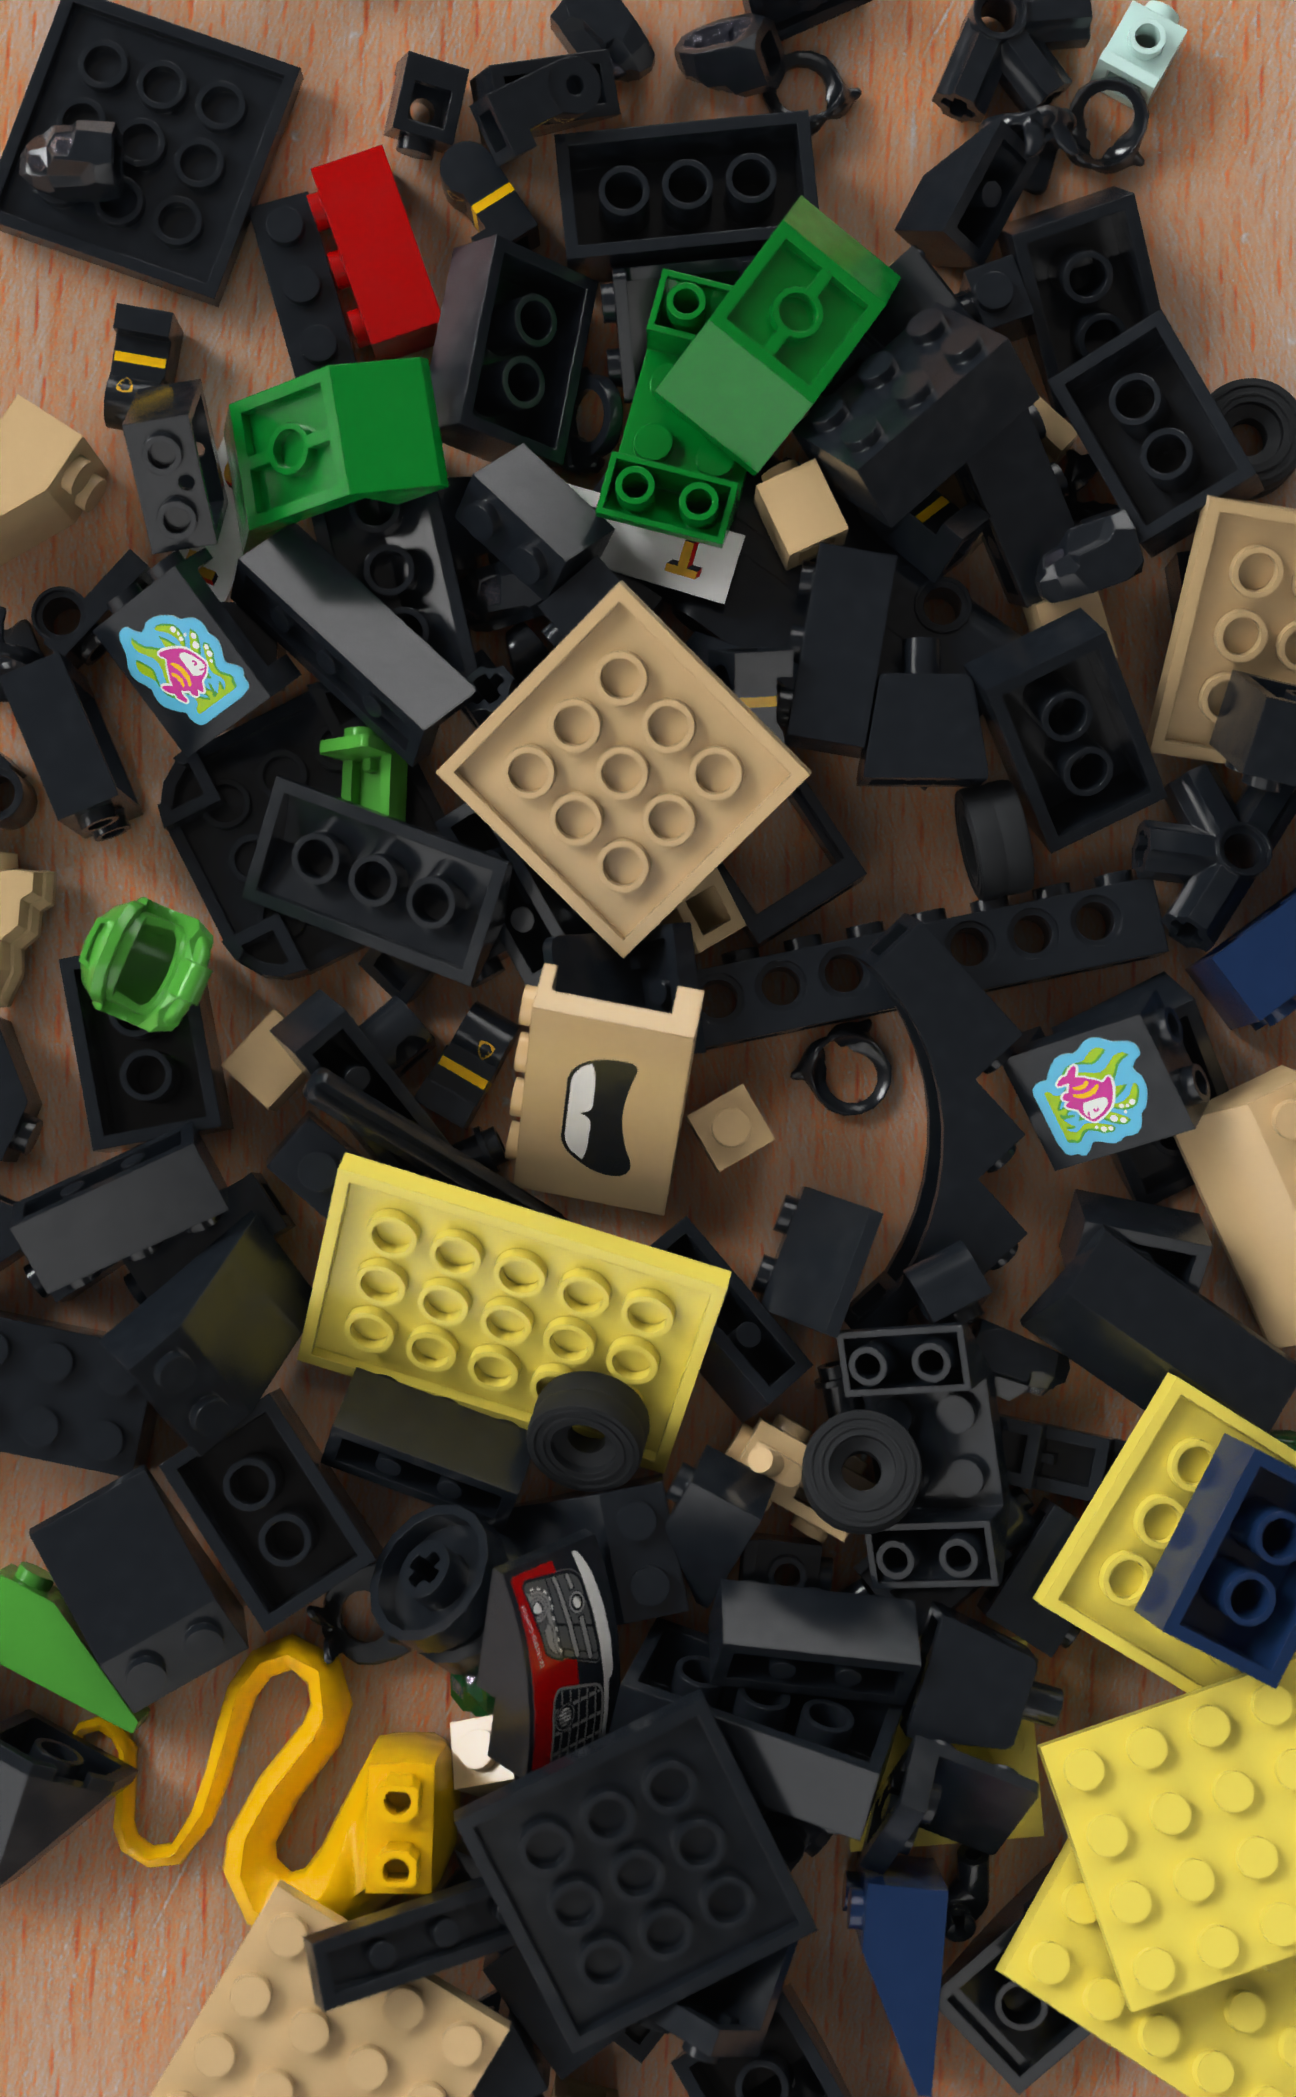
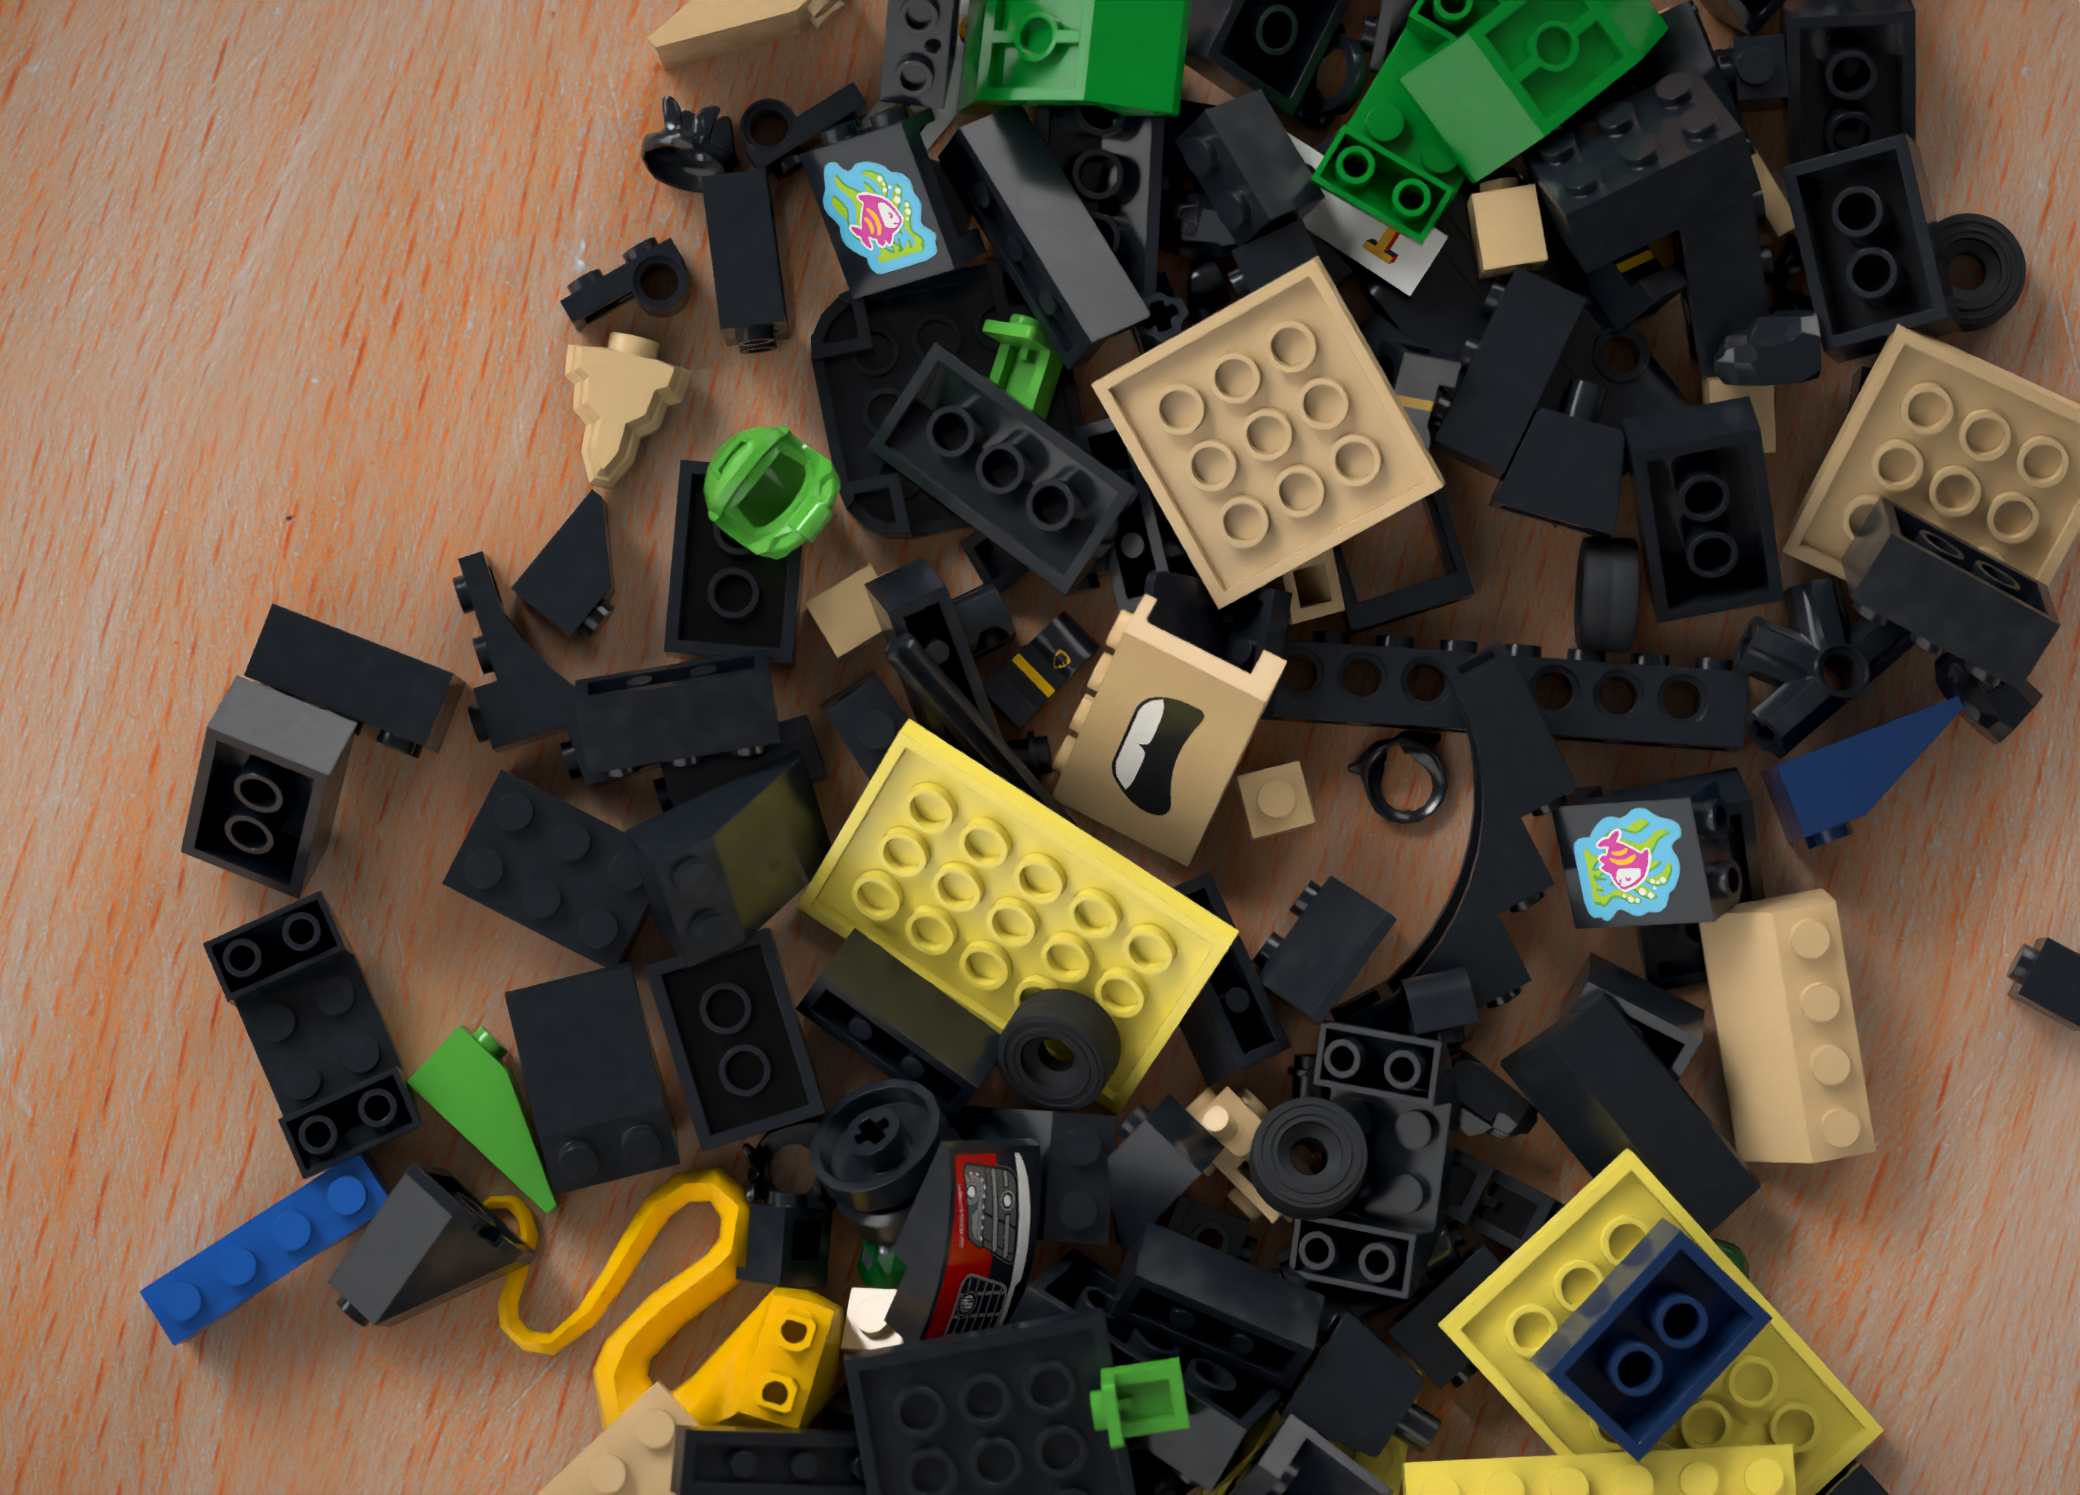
camera: 15 degrees right, 0 degrees up
(375, 1695) = (787, 1242): none -> black brick
(764, 1777) = (1140, 1400): none -> bright green bracket

